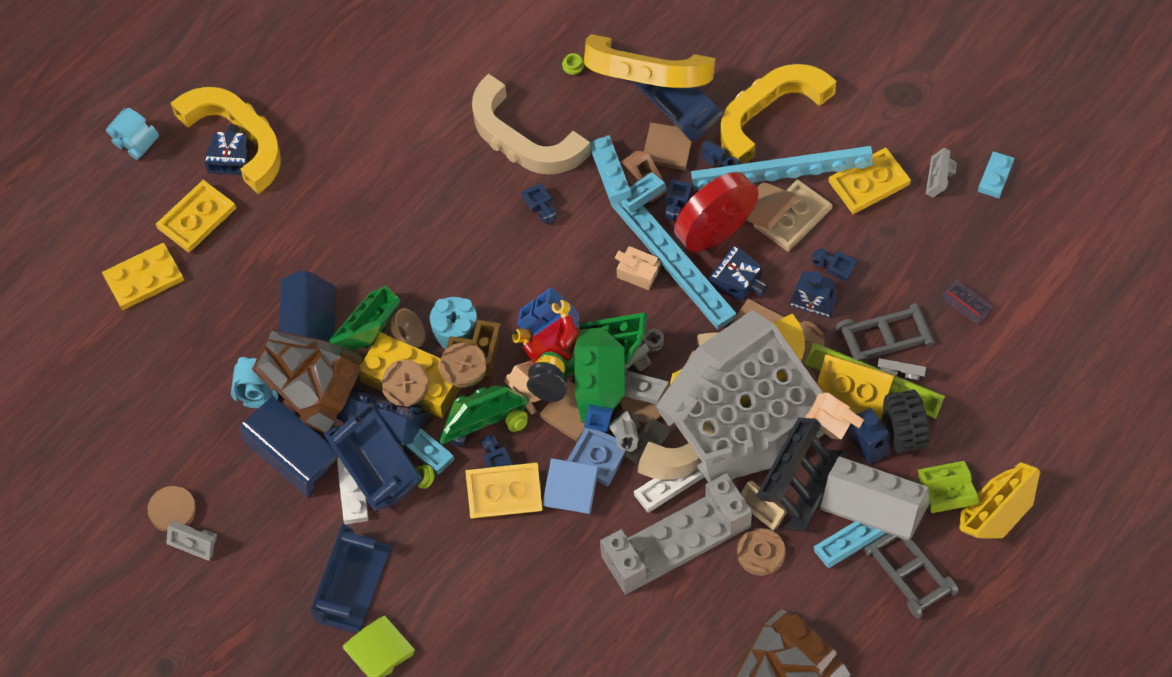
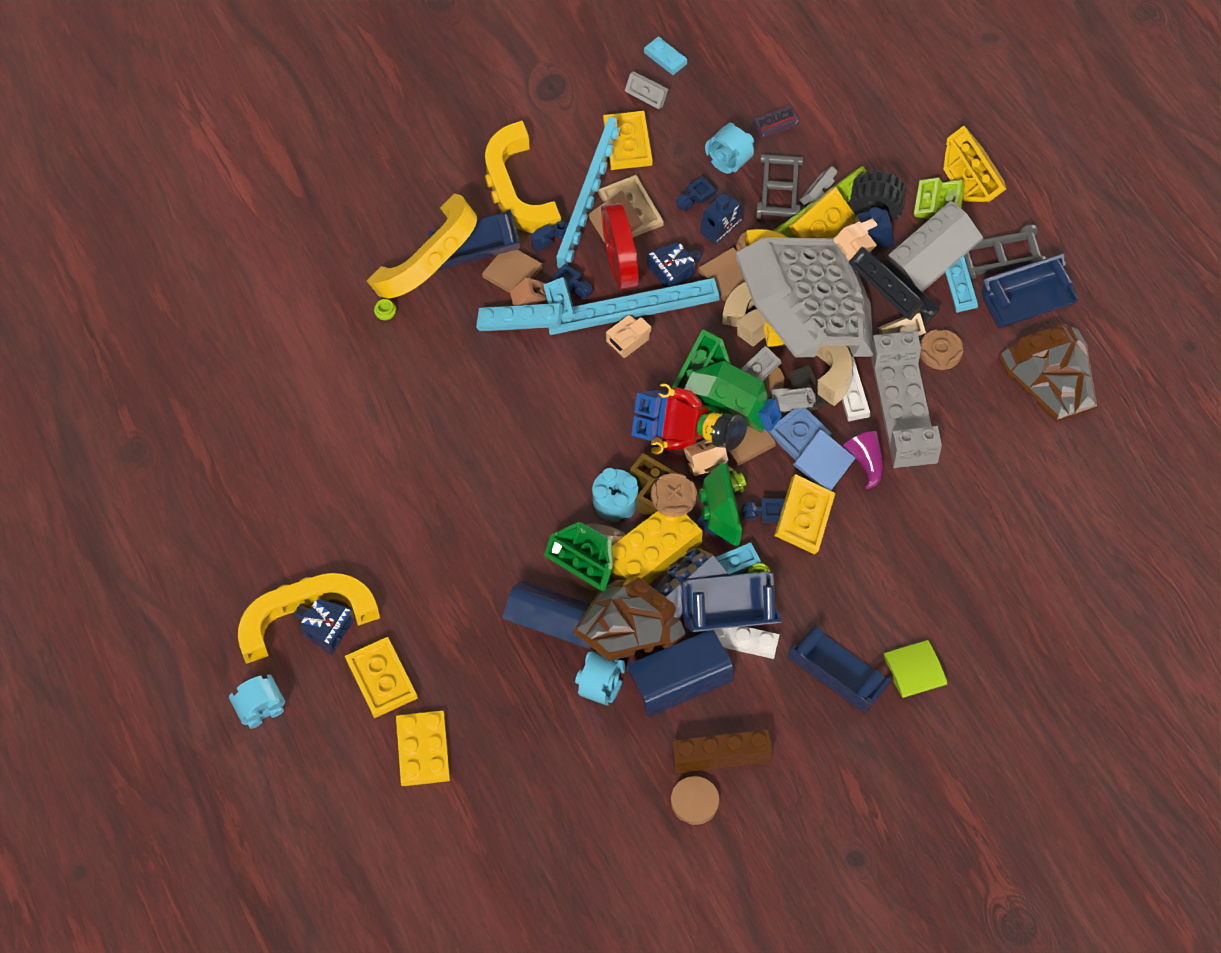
camera: 70 degrees left, 0 degrees up
(191, 540) = (743, 786): light grey hinge -> none
(224, 510) = (721, 751): none -> reddish brown brick
(405, 383) = (670, 547): medium nougat tile -> none
(516, 147) = (440, 387): tan arch -> none
(538, 199) = (515, 386): dark blue plate -> none
(599, 523) = (868, 453): none -> magenta hat
(871, 611) = (1028, 291): none -> dark blue piece
(901, 269) = (730, 148): none -> medium azure brick

